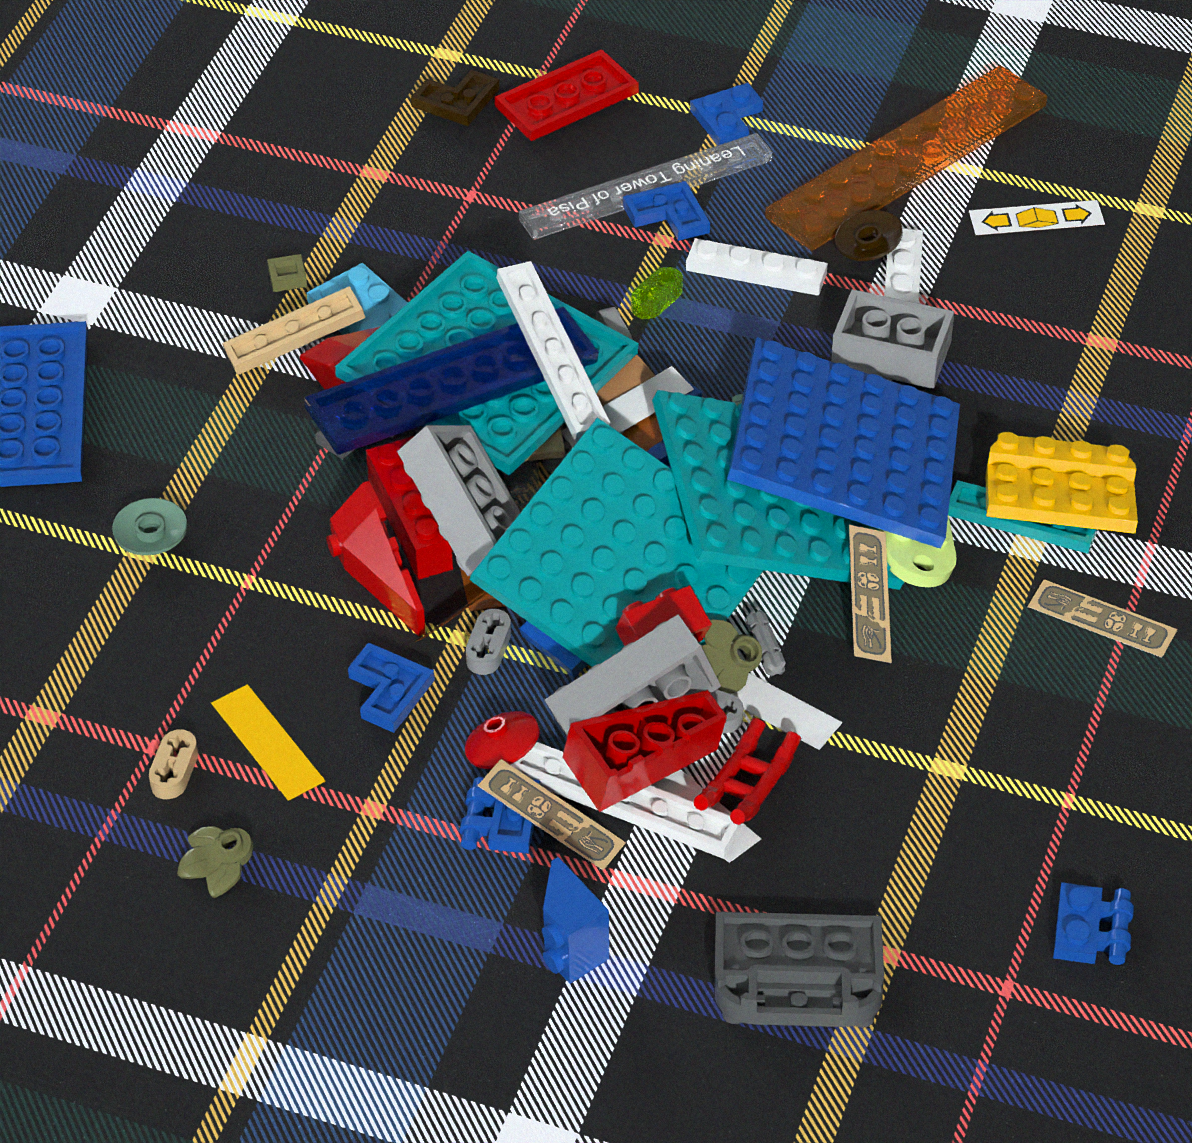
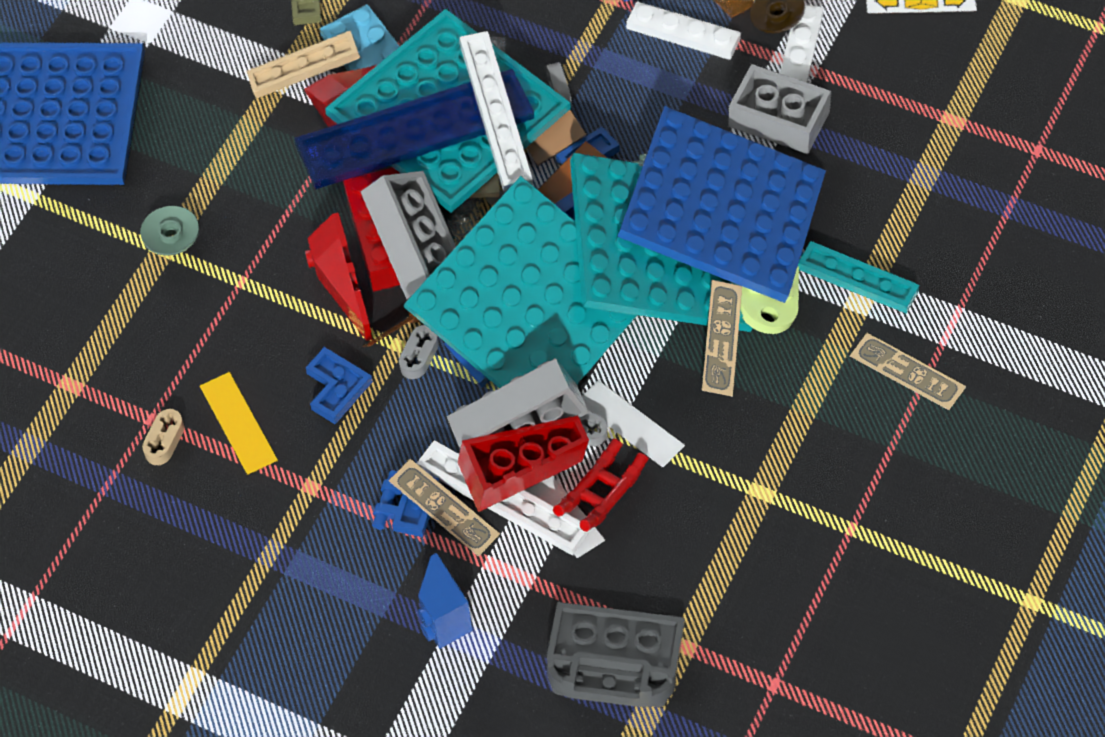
camera: 10 degrees right, 10 degrees up
(214, 860) = (182, 520): olive plate -> none
(502, 737) = (416, 439): red dish -> none
(638, 403) = (558, 155): white sticker -> none
(642, 618) = (559, 345): red brick -> none
(651, 289) = (601, 51): clear neon green beam -> none
(721, 651) = (595, 382): olive plate -> none
(771, 656) = (635, 372): light grey axle -> none
(1061, 483) = (893, 252): yellow plate -> none
(1078, 924) = (839, 636): blue plate -> none

